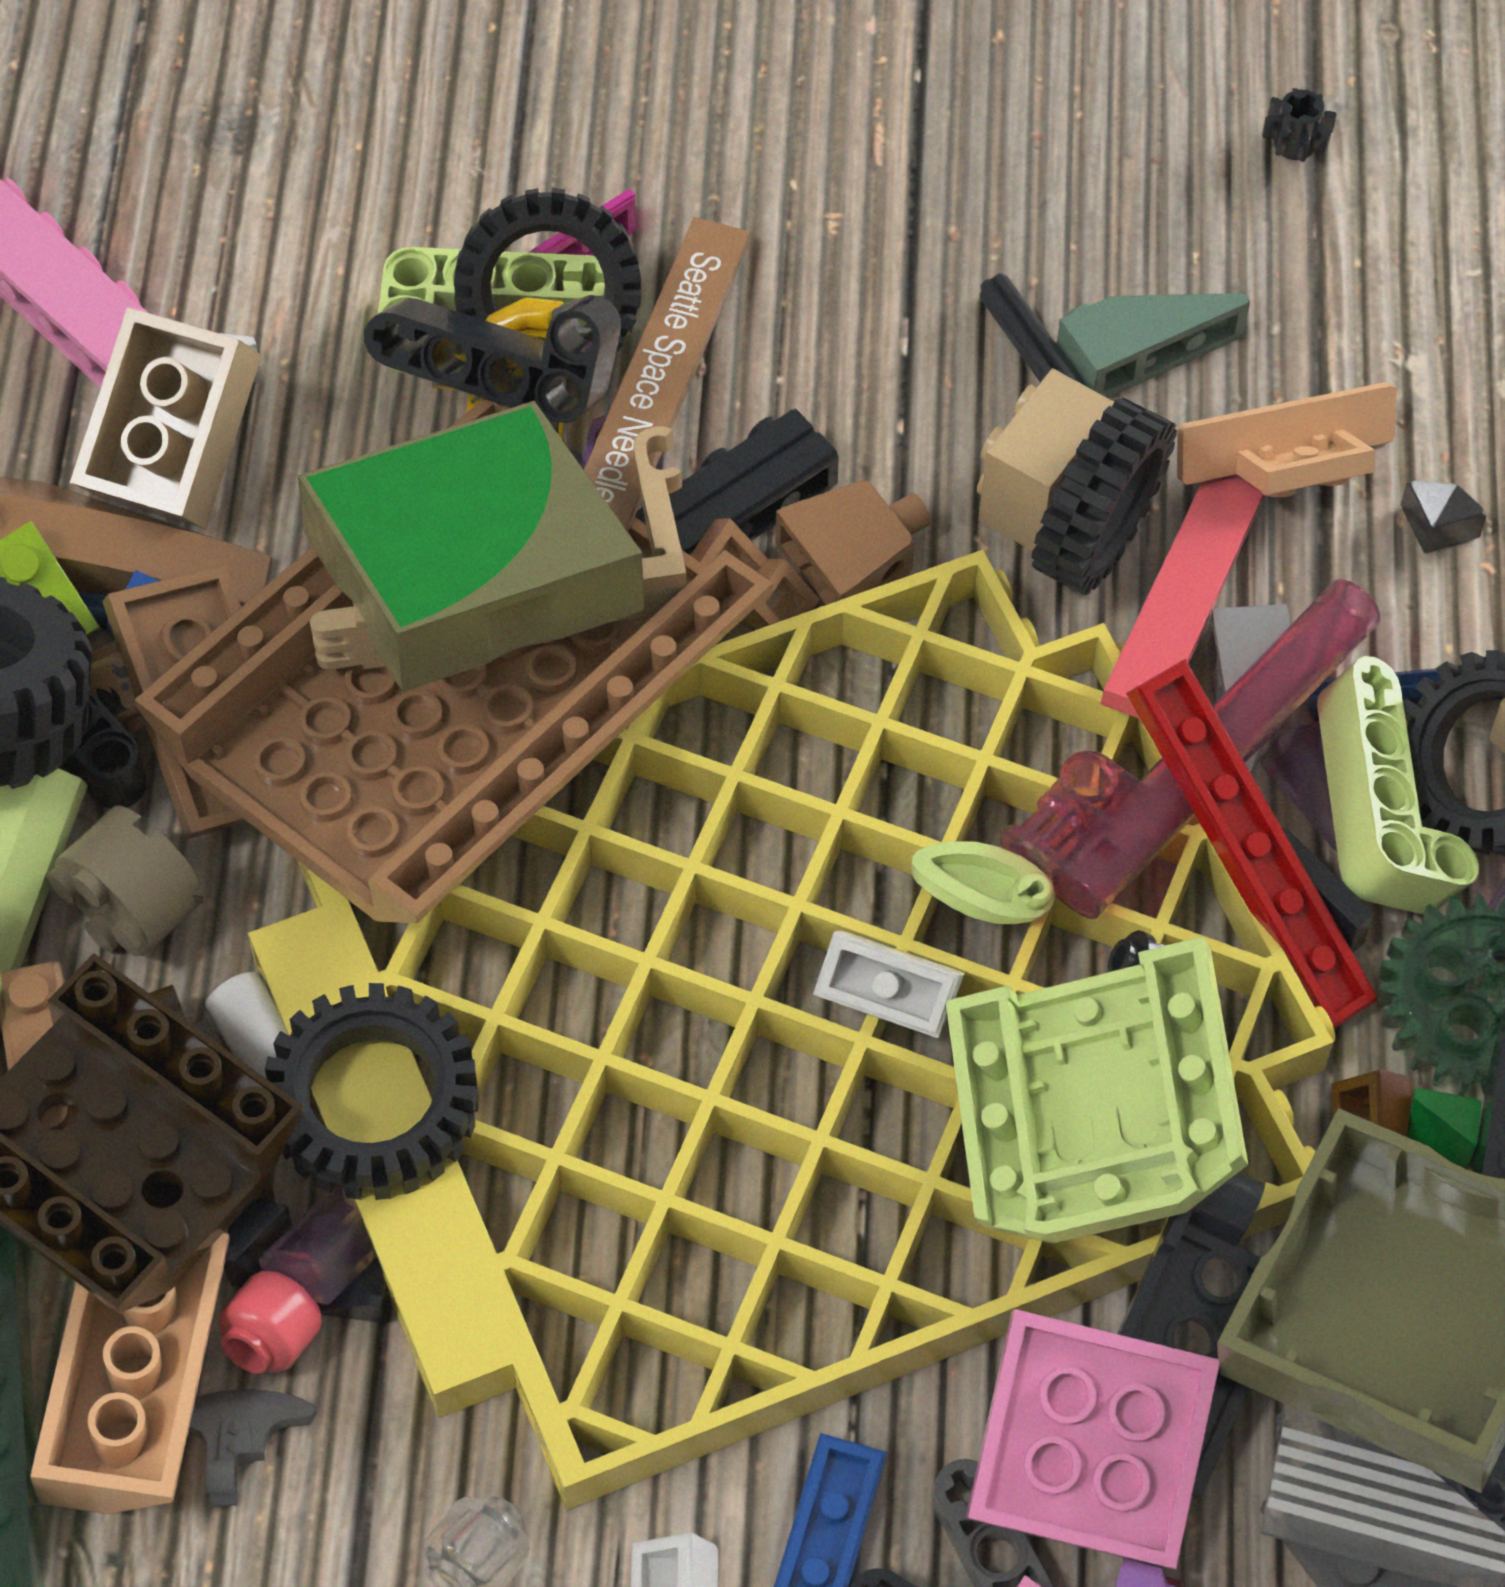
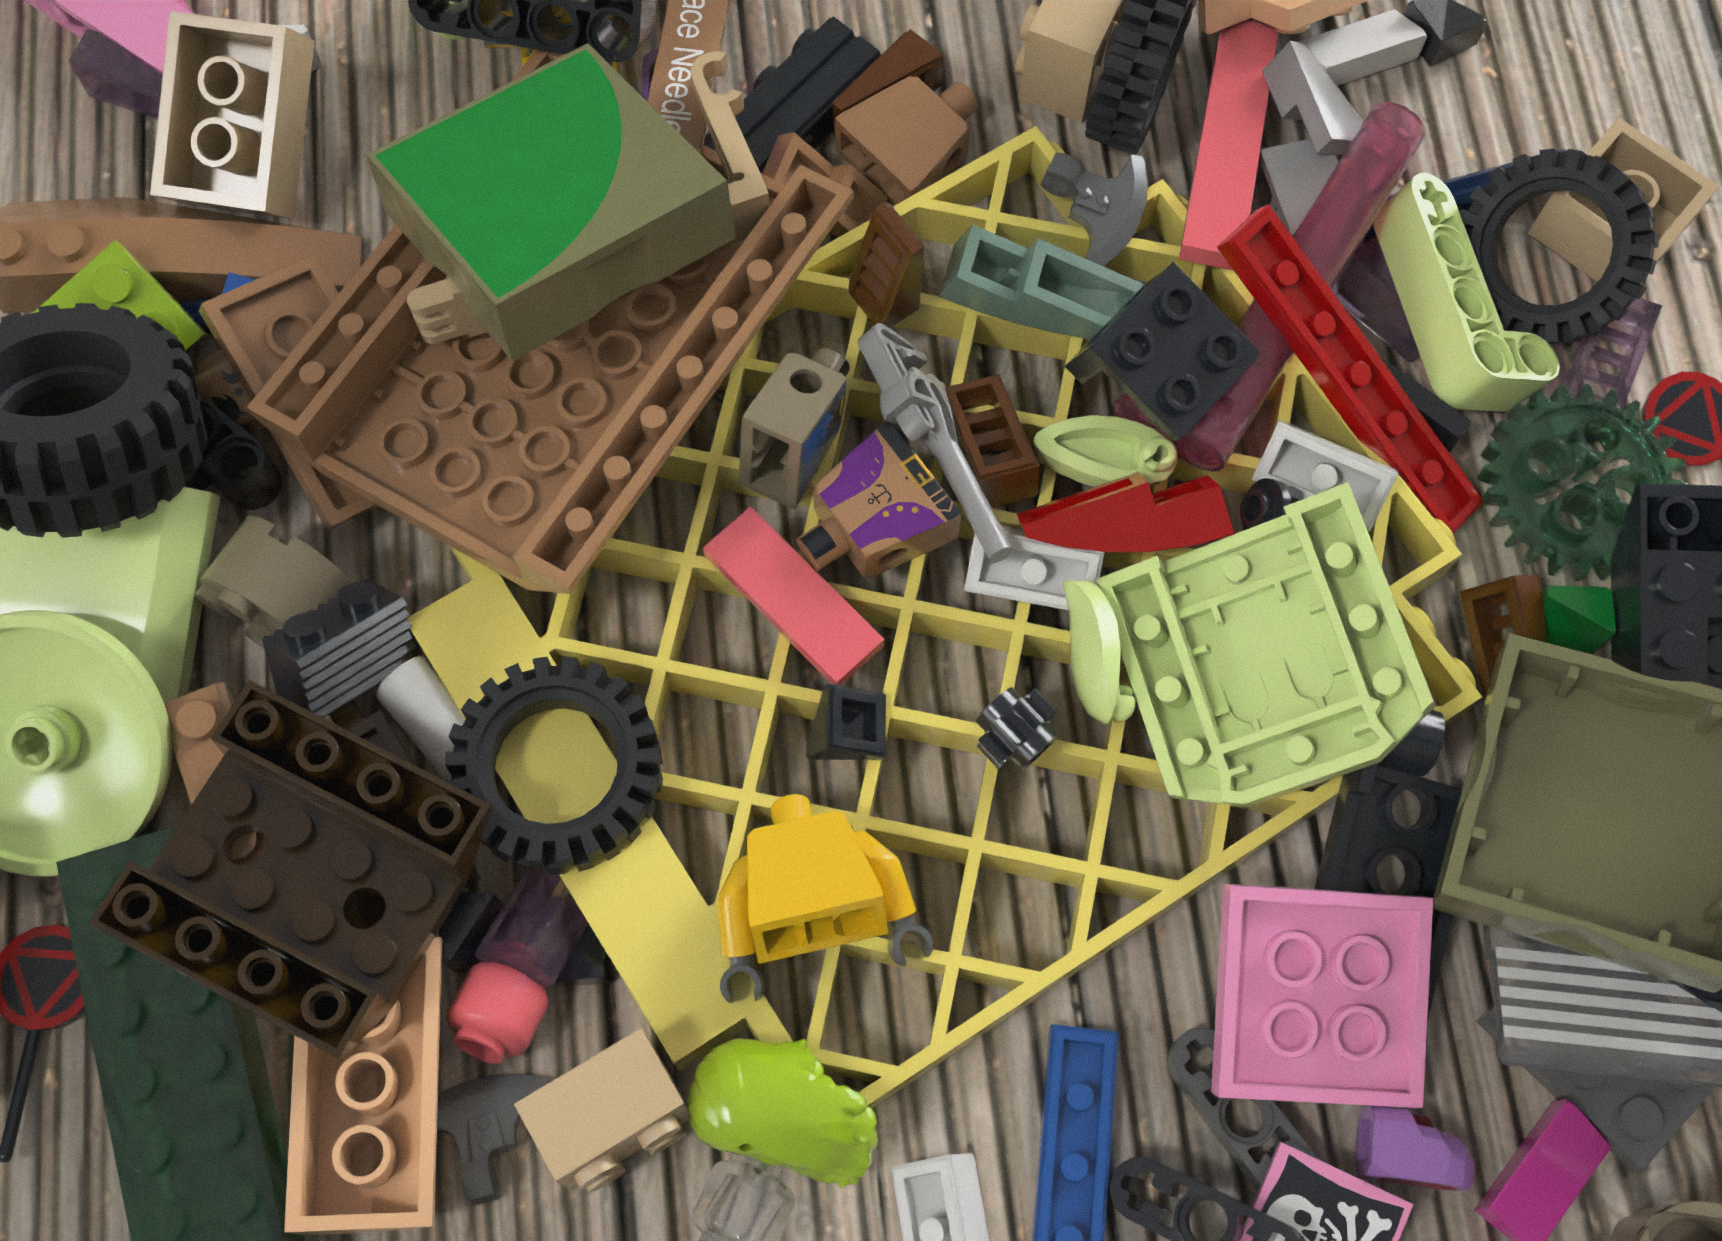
camera: 10 degrees left, 10 degrees up
(56, 361) = (116, 75): none -> clear purple slope
(184, 945) = (340, 648): none -> black brick
(361, 1428) = (605, 1113): none -> tan brick
(533, 1455) = (781, 1110): none -> lime piece
(598, 1243) = (810, 889): none -> yellow torso
(639, 972) = (793, 597): none -> coral tile
(669, 804) = (792, 425): none -> dark tan torso
(669, 1103) = (848, 725): none -> black slope
(741, 898) = (879, 508): none -> torso
(795, 668) = (887, 269): none -> reddish brown slope
(805, 812) = (924, 414): none -> light grey piece
(835, 1130) = (1016, 728): none -> black gear
(863, 460) = (905, 57): none -> reddish brown slope
(869, 890) = (1003, 476): none -> reddish brown slope
(929, 1072) = (1096, 653): none -> yellowish green arm
(952, 710) = (1034, 284): none -> sand green slope
(991, 948) = (1130, 518): none -> red slope
(1034, 641) = (1104, 207): none -> dark grey piece
(1060, 789) = (1168, 351): none -> black bracket
(1237, 951) = (1319, 464): none -> white slope
(1278, 562) = (1309, 94): none -> light grey slope
(1349, 524) = (1367, 46): none -> white slope

